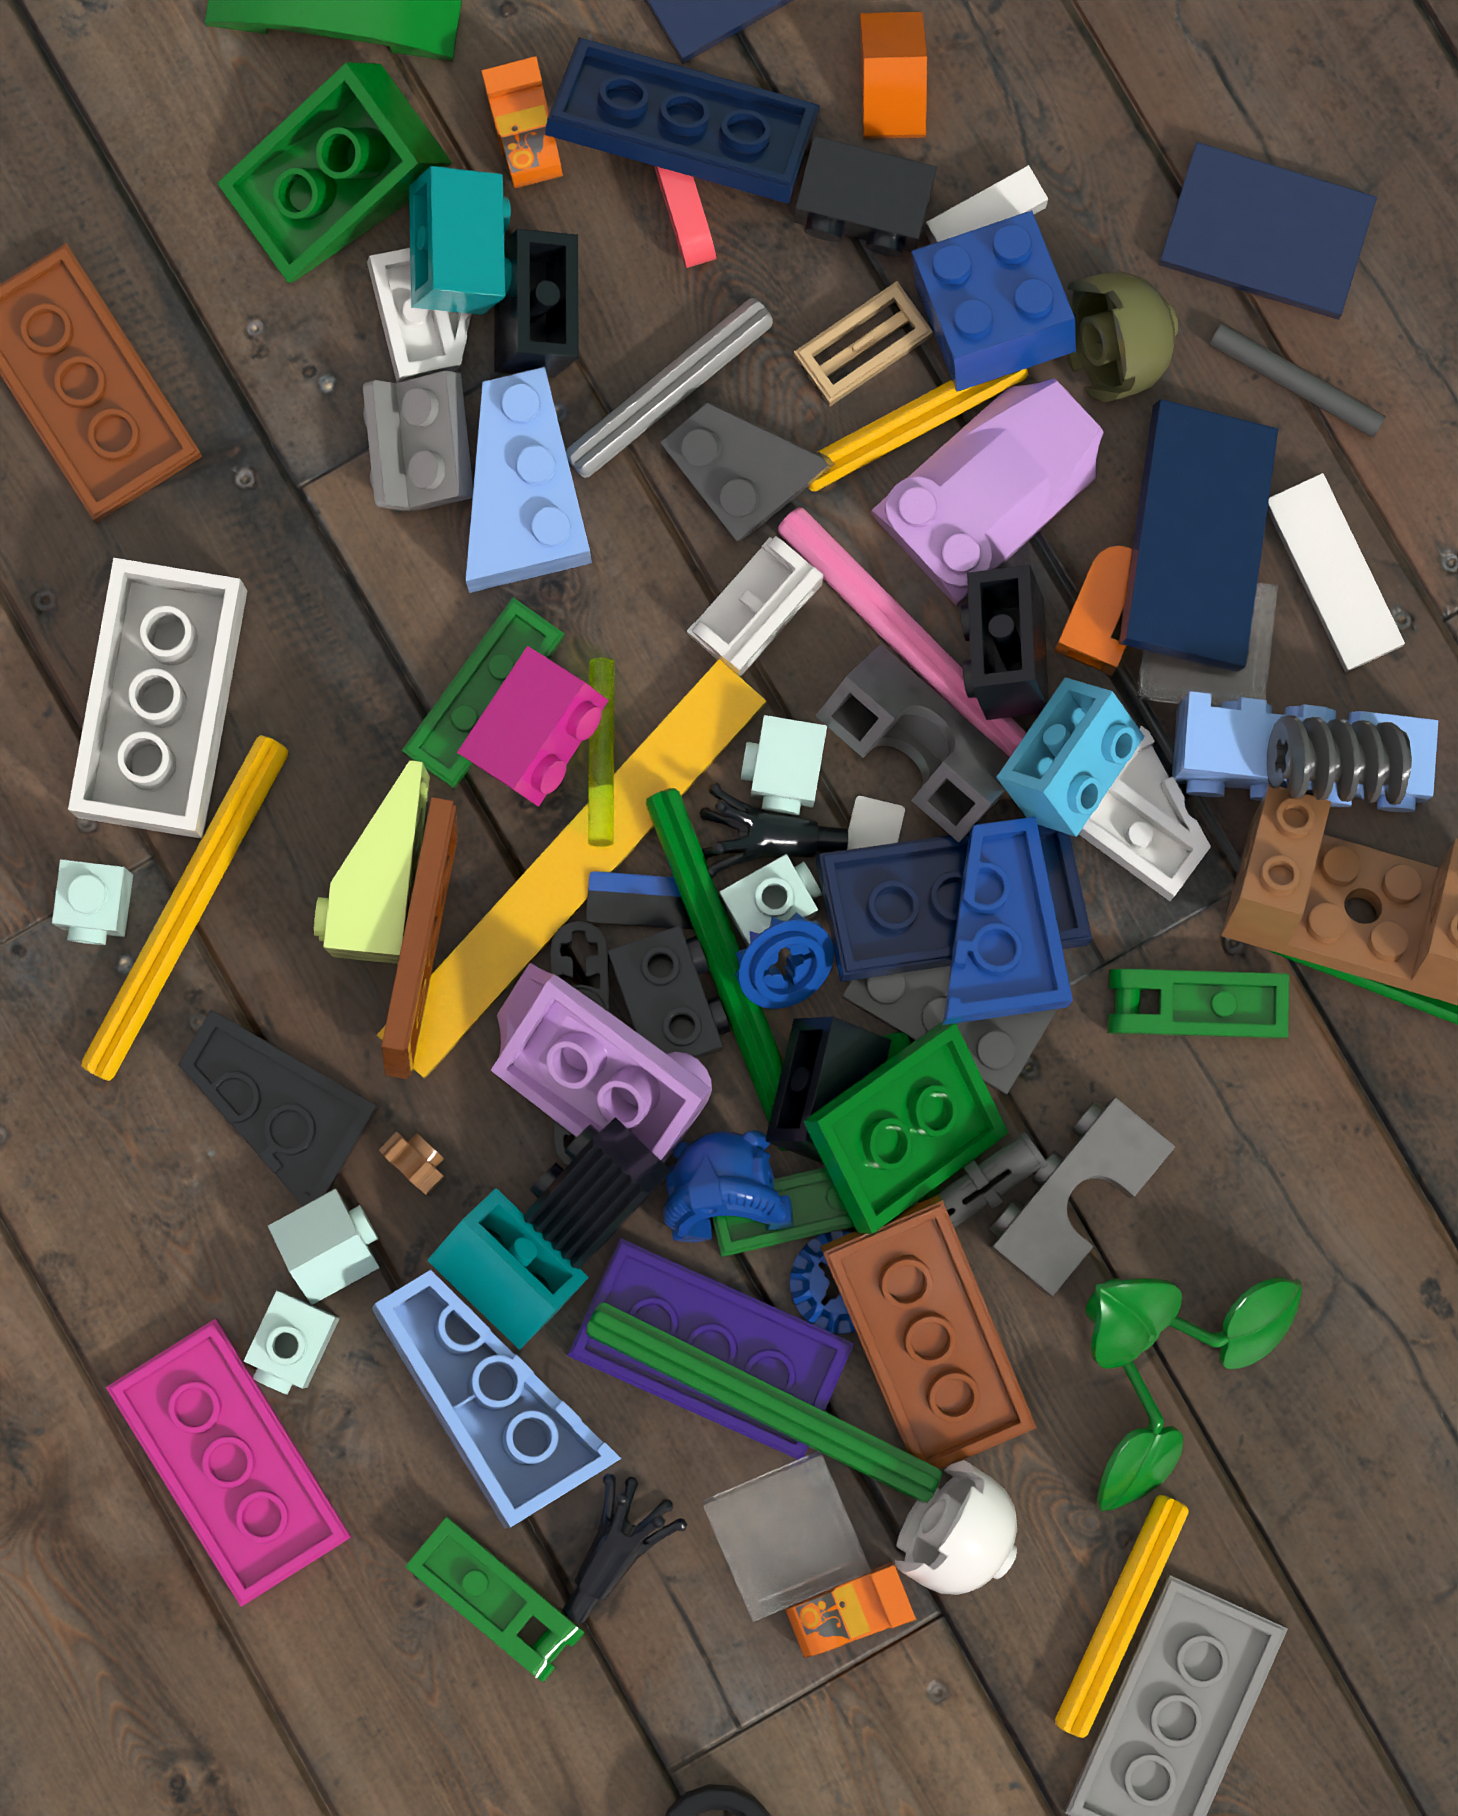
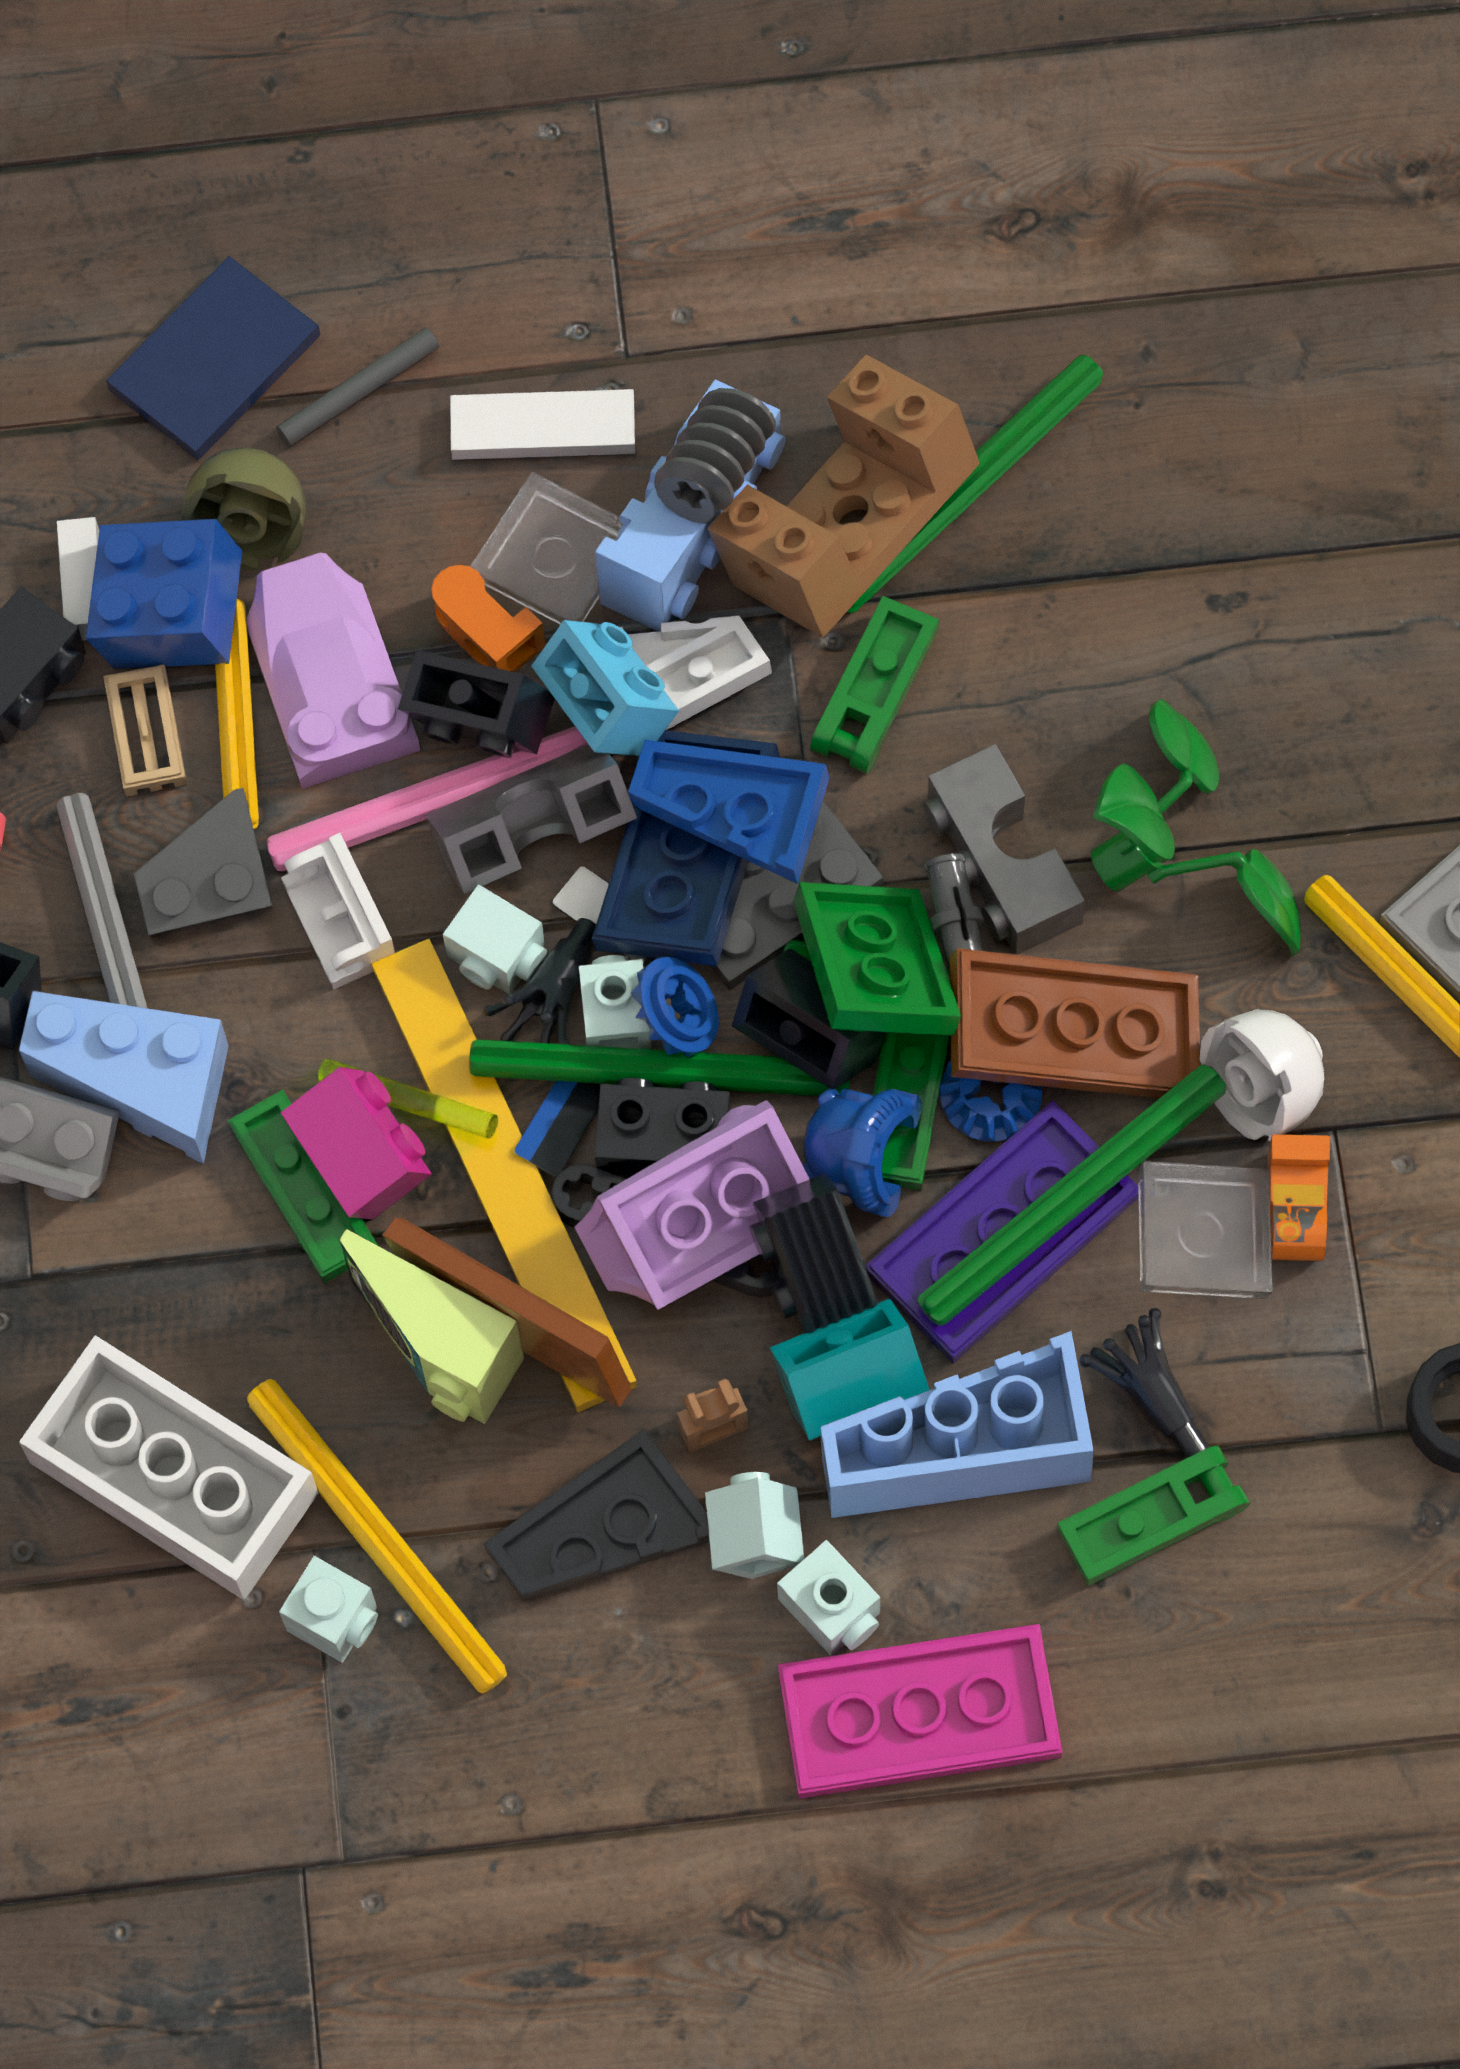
camera: 60 degrees left, 15 degrees down
(1198, 536) = (457, 511): dark blue tile -> none

